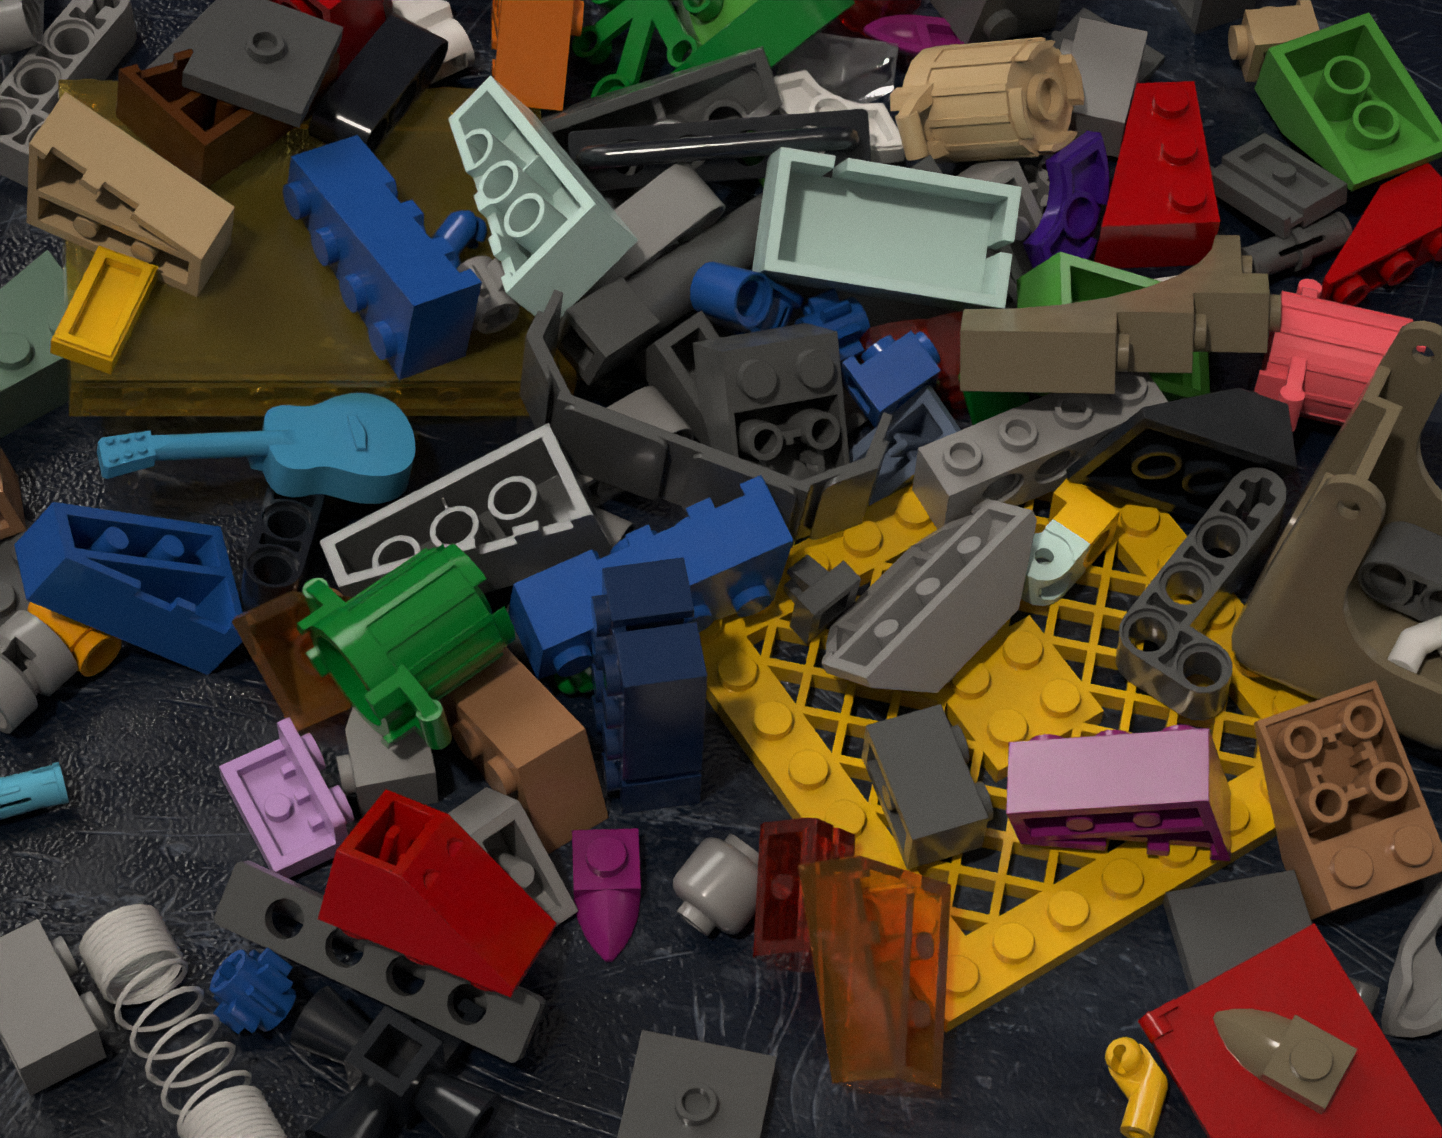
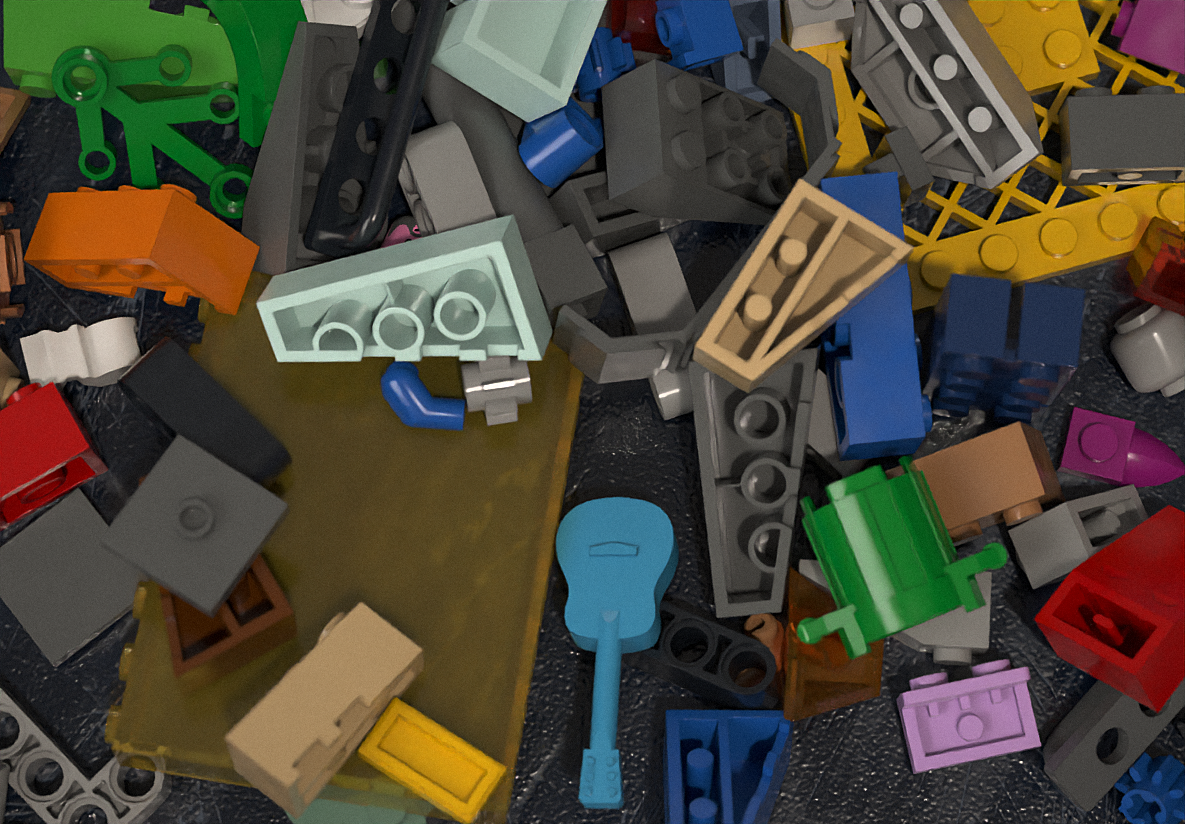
camera: 70 degrees left, 20 degrees up
(385, 262) = (431, 472): blue wedge -> none
(634, 455) = (796, 285): none -> tan wedge

